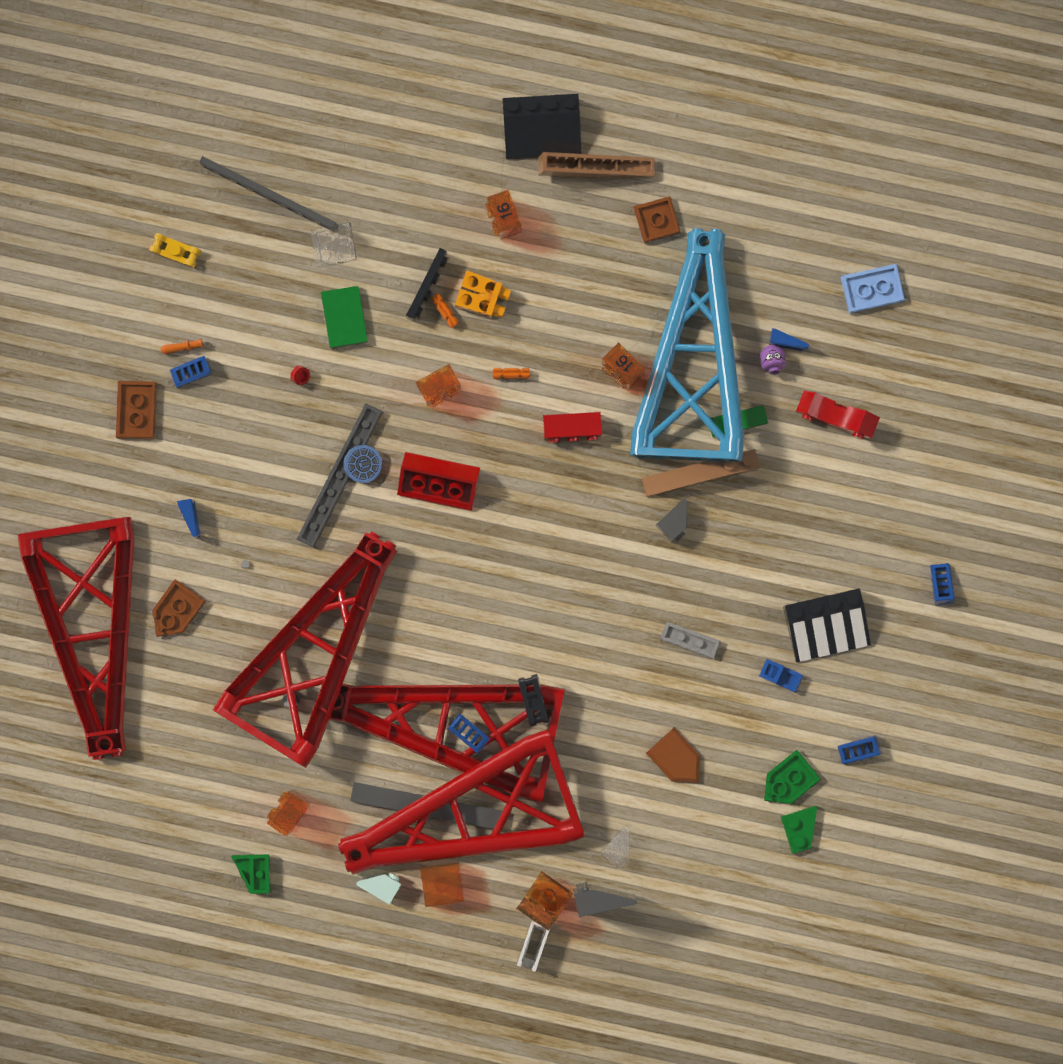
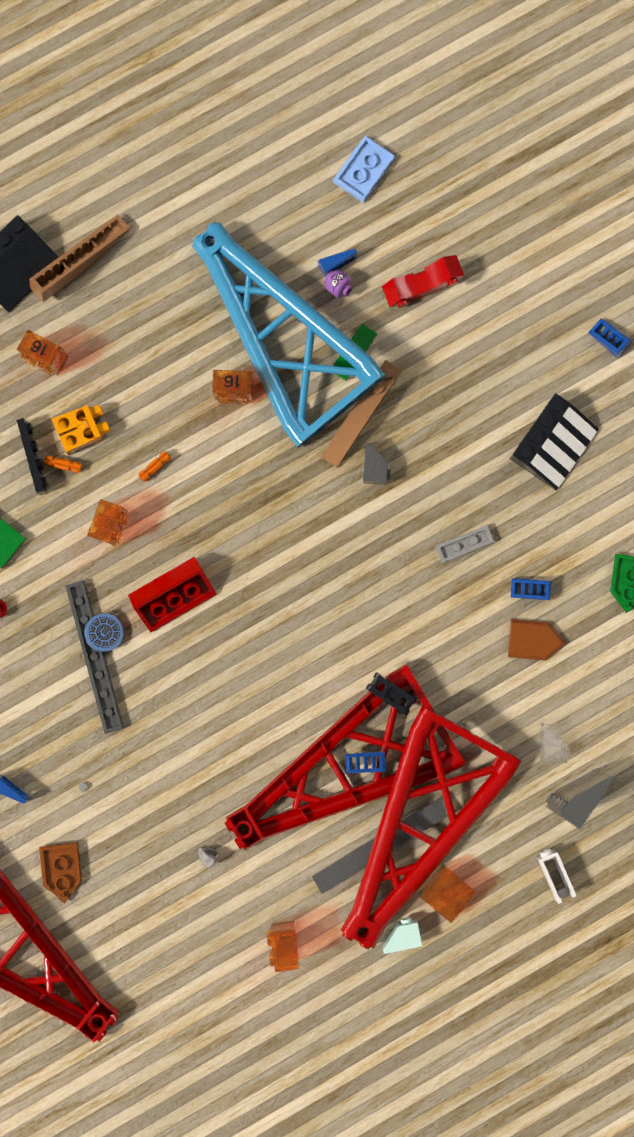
camera: 45 degrees left, 0 degrees up
(254, 871) = (298, 1012): green wing -> none
(321, 602) = (203, 756): red piece -> none
(544, 900) = (535, 836): clear orange brick -> none
(572, 427) = (235, 464): red brick -> none
(657, 219) = (160, 258): dark orange tile -> none
(698, 706) = (514, 586): none -> blue slope
(781, 675) = (554, 510): blue slope -> none

